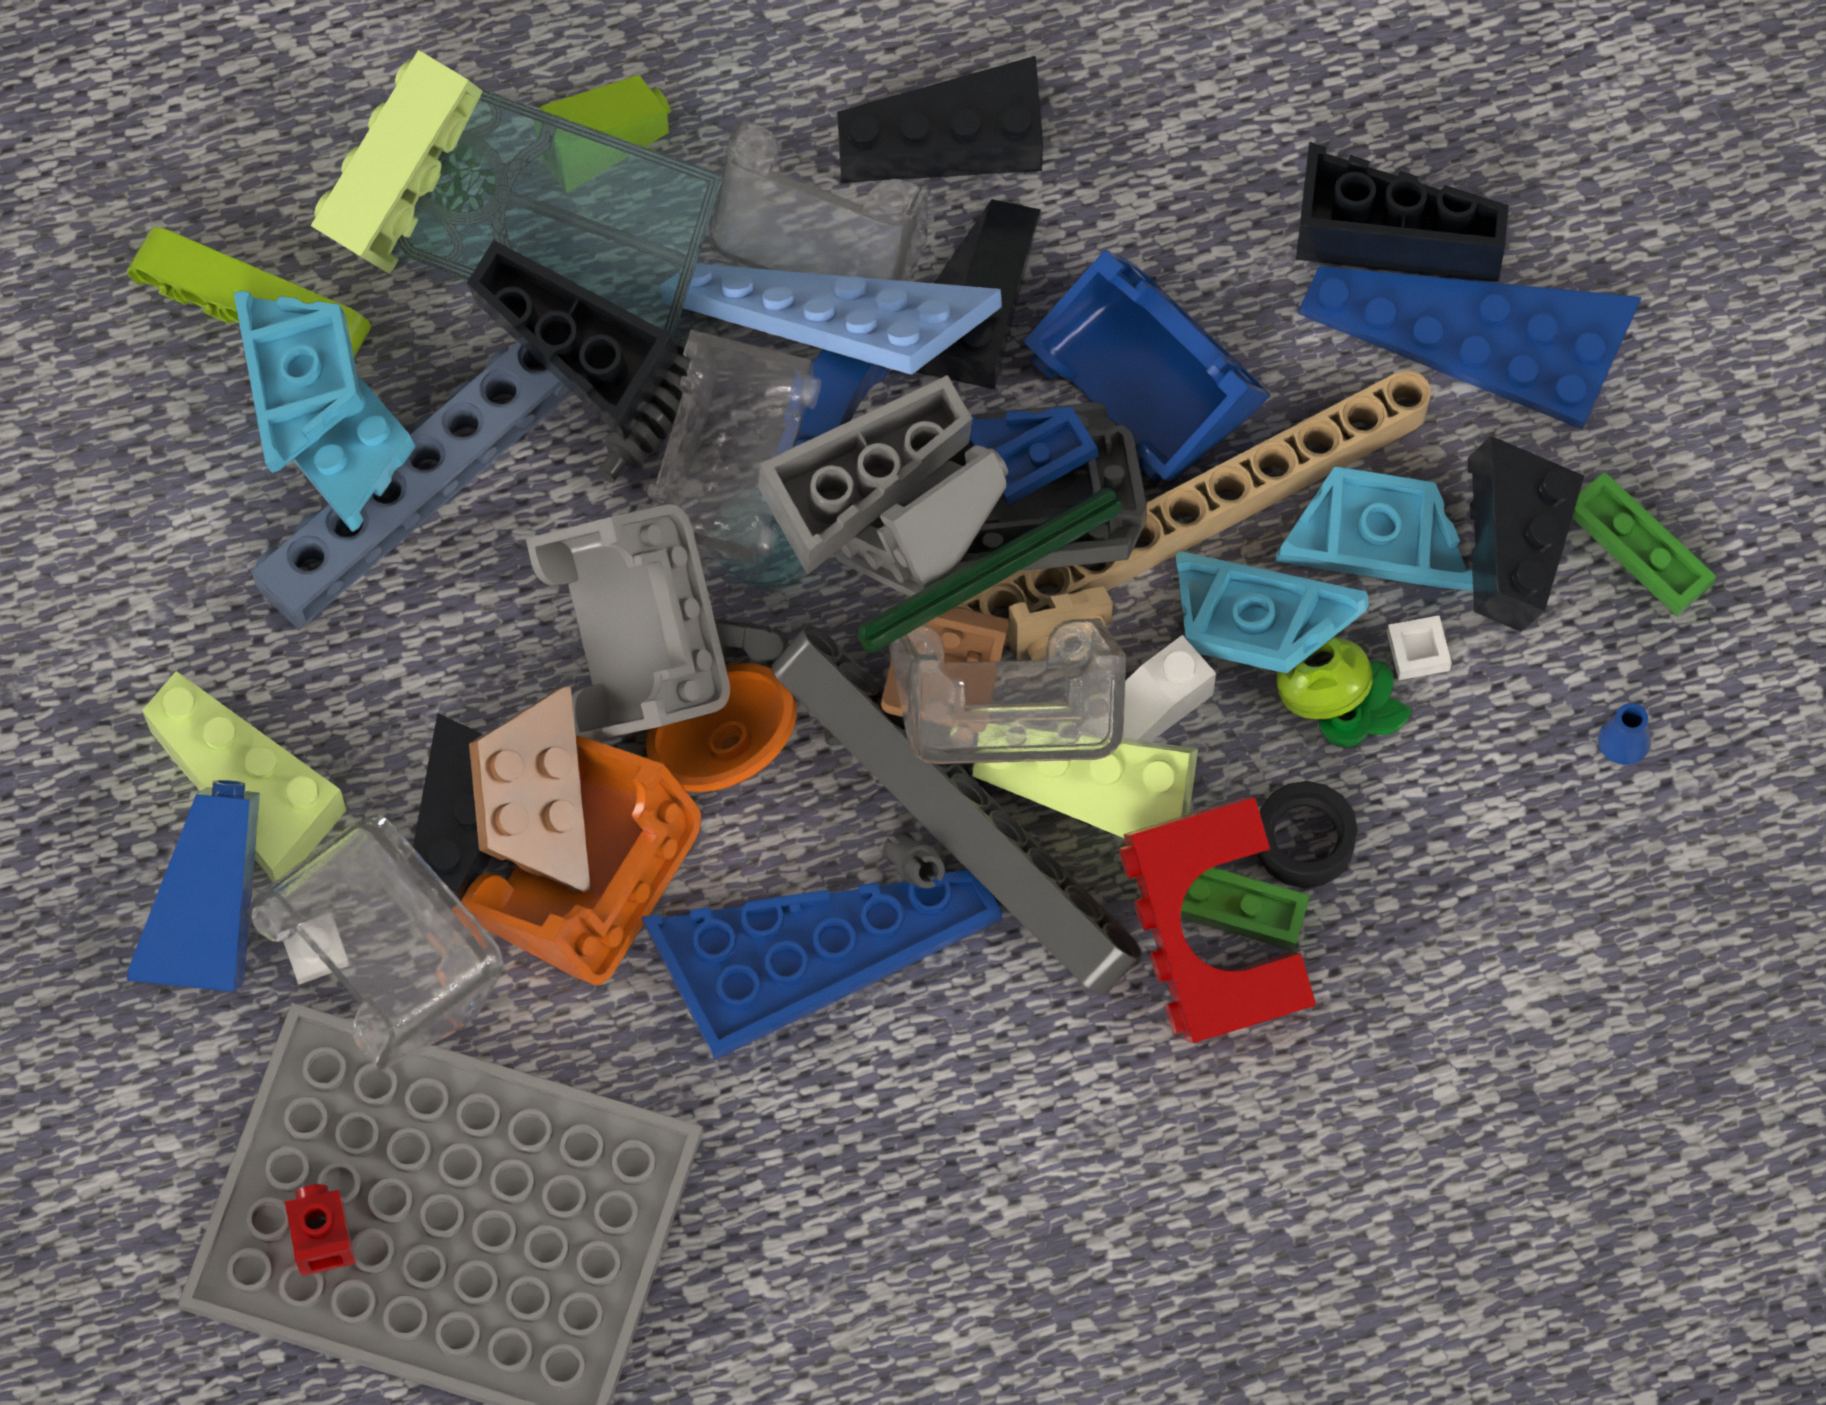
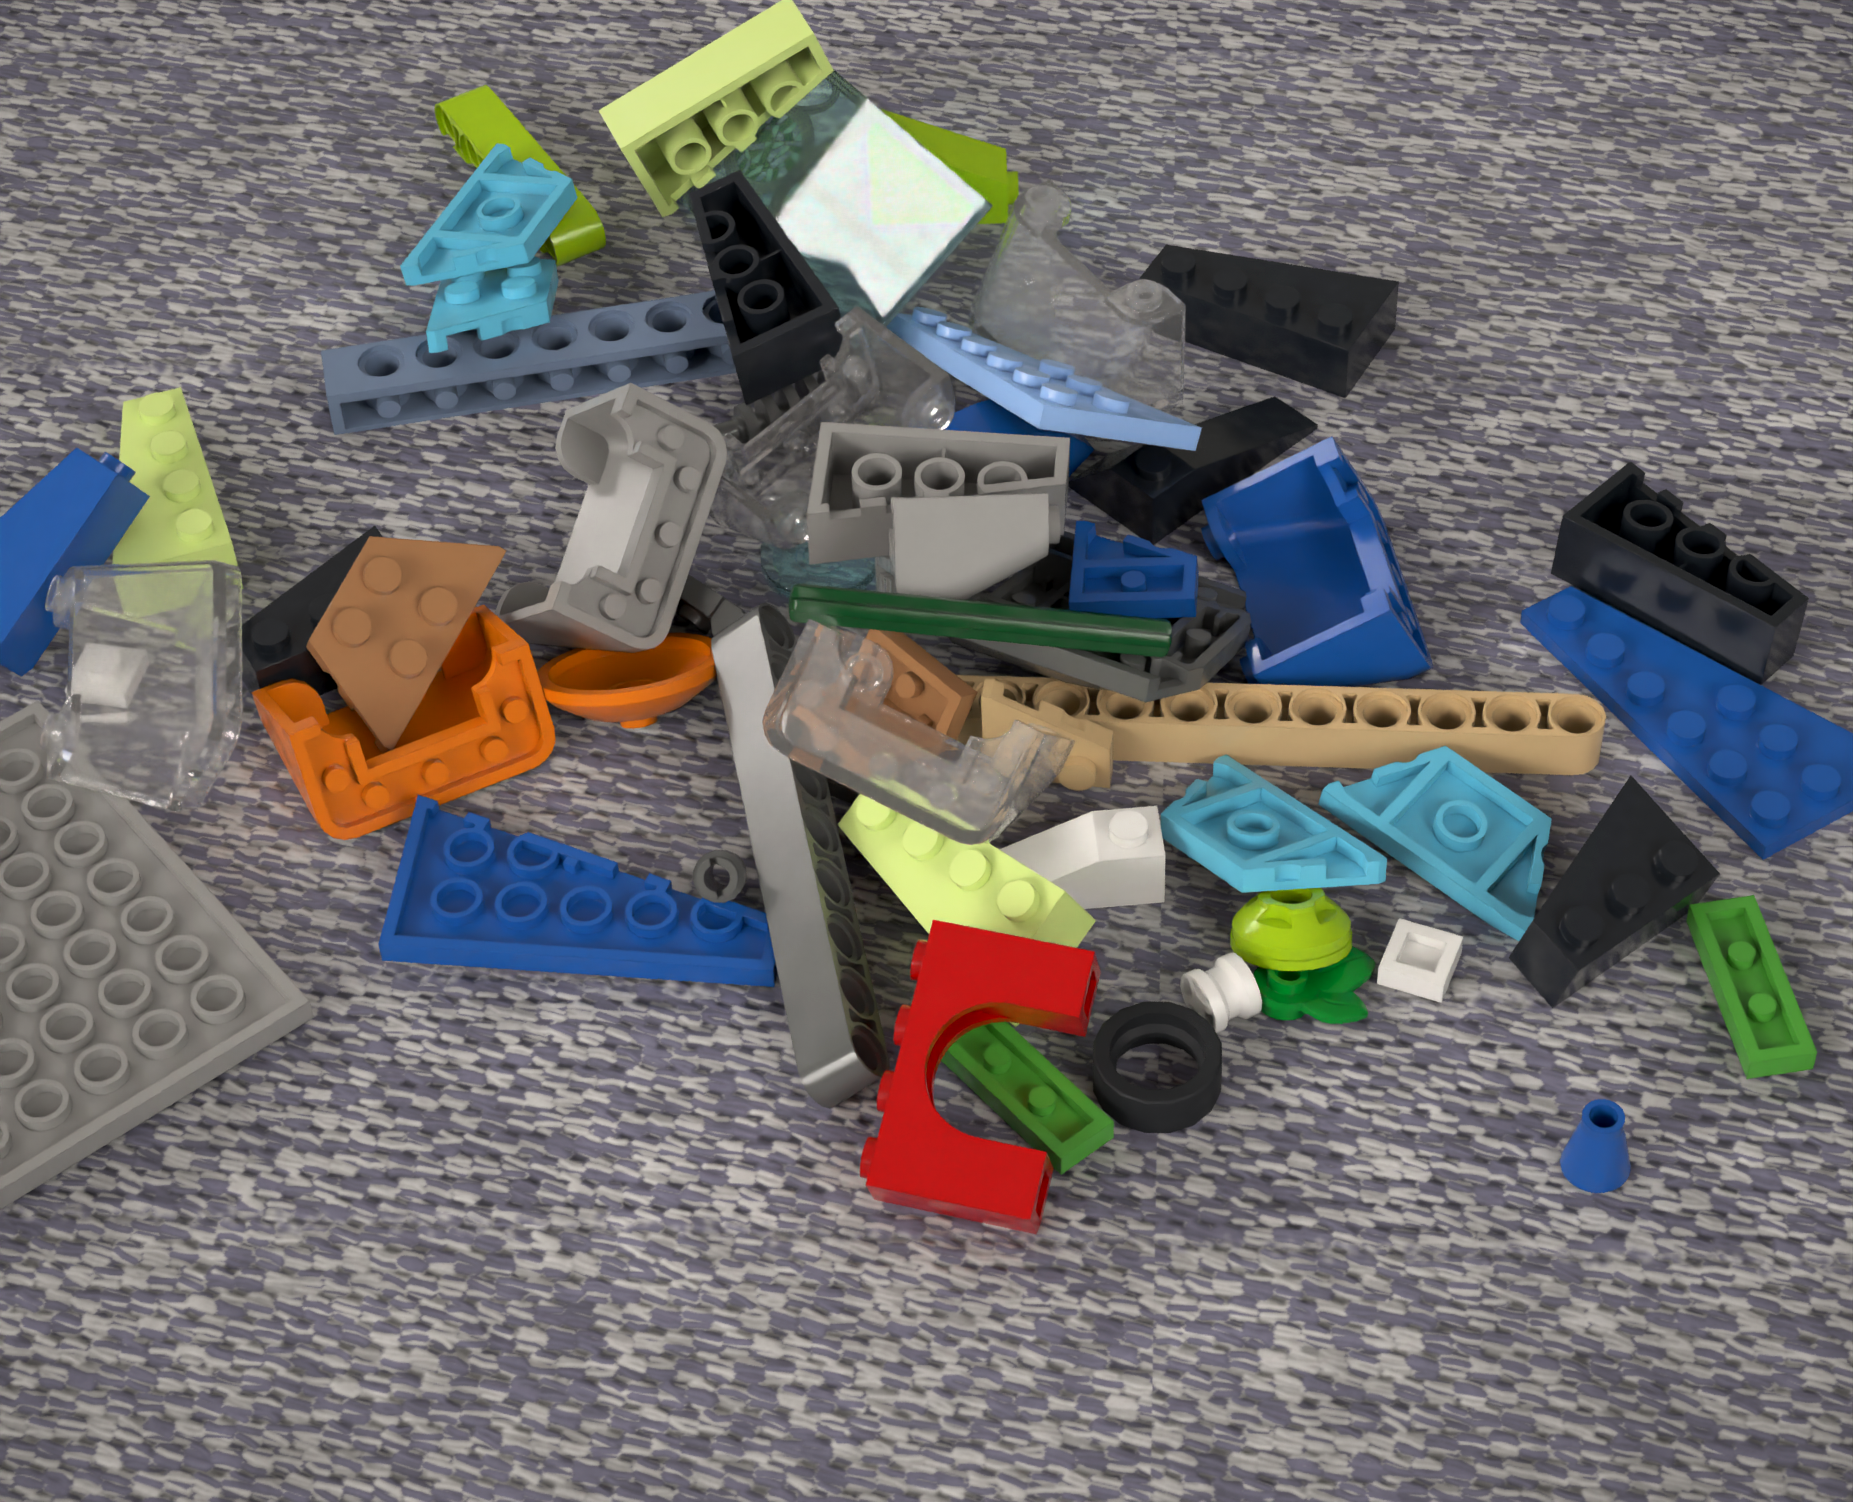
camera: 35 degrees right, 20 degrees down
(1310, 751) = (1222, 991): none -> white wheel

